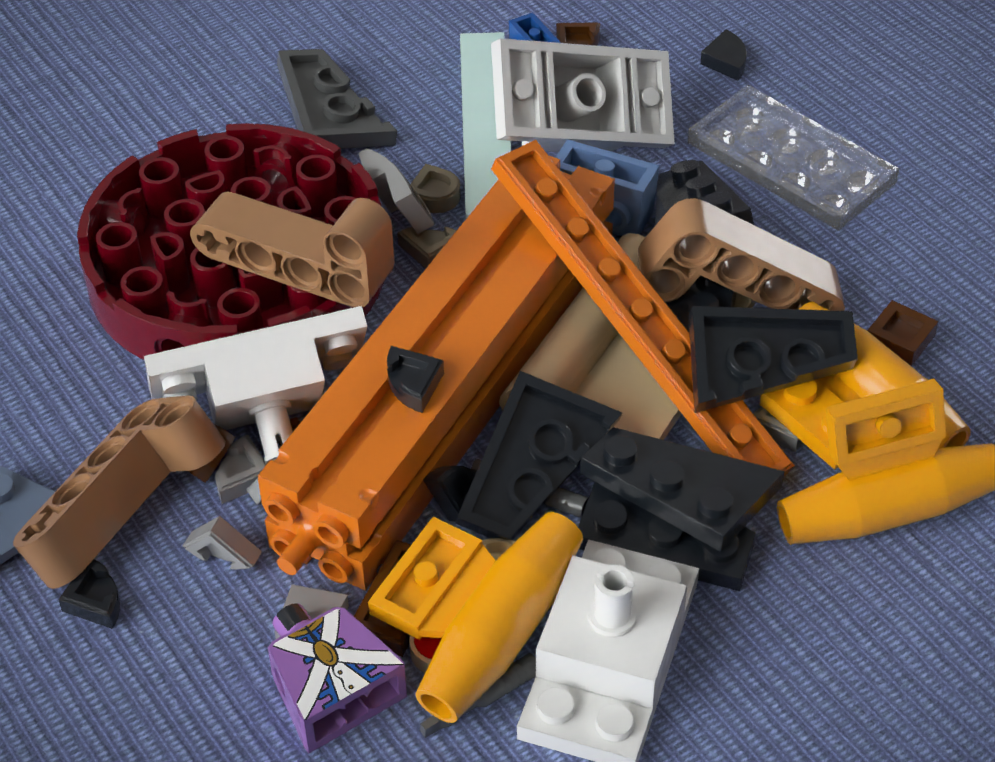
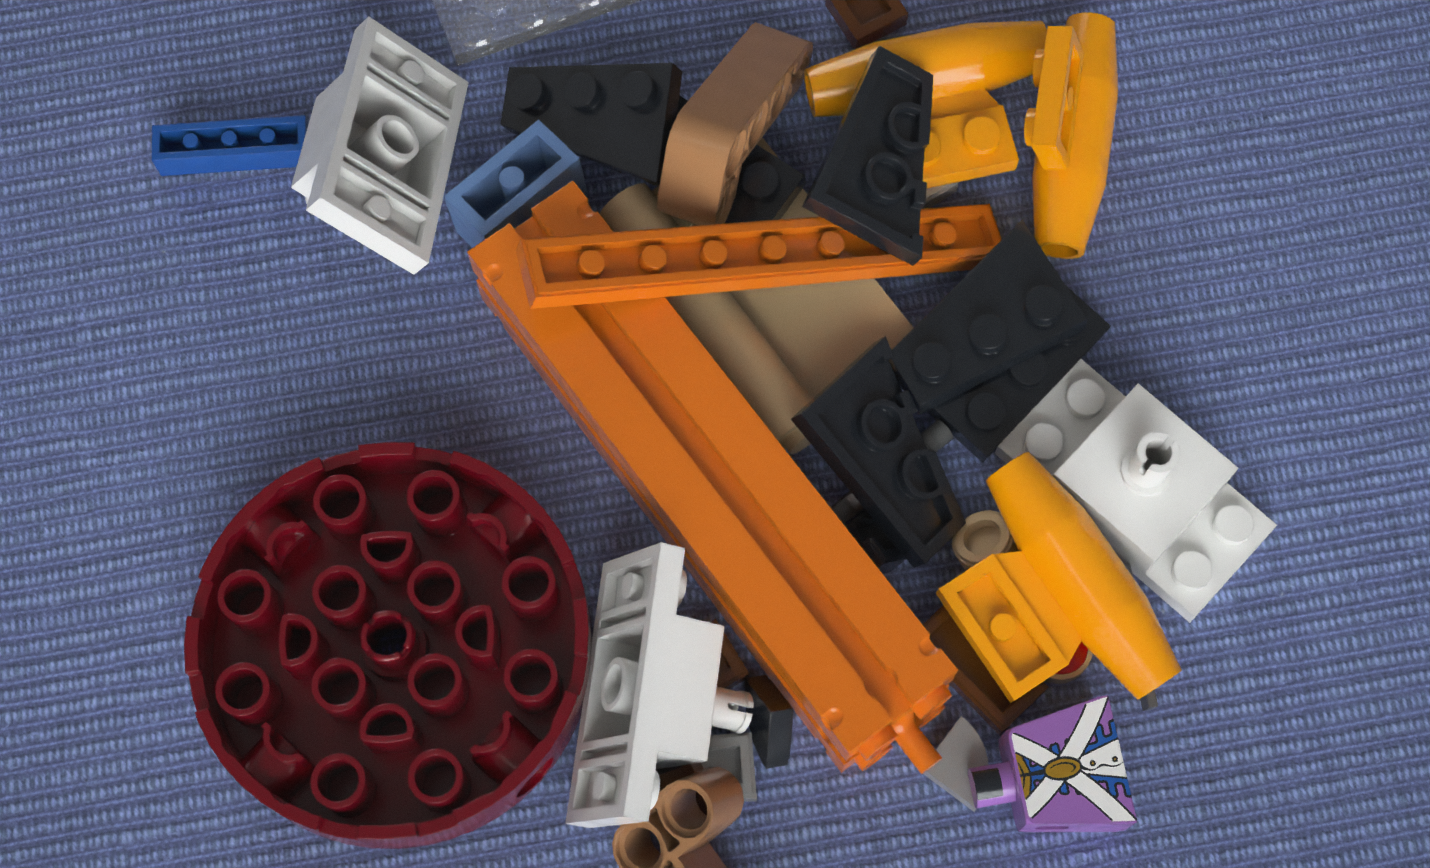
camera: 65 degrees left, 25 degrees up
(224, 542) = (836, 824): light grey tile -> none
(327, 105) = (169, 440): dark grey wing -> none
(332, 261) = (502, 577): medium nougat beam -> none
(396, 190) = (384, 420): light grey slope -> none
(413, 376) = (790, 531): black tile -> none
(425, 245) = (474, 417): dark tan tile -> none
(437, 188) = (384, 375): dark tan tile -> none
(479, 117) = (306, 270): light aqua tile -> none
(578, 33) = (201, 96): reddish brown tile -> none

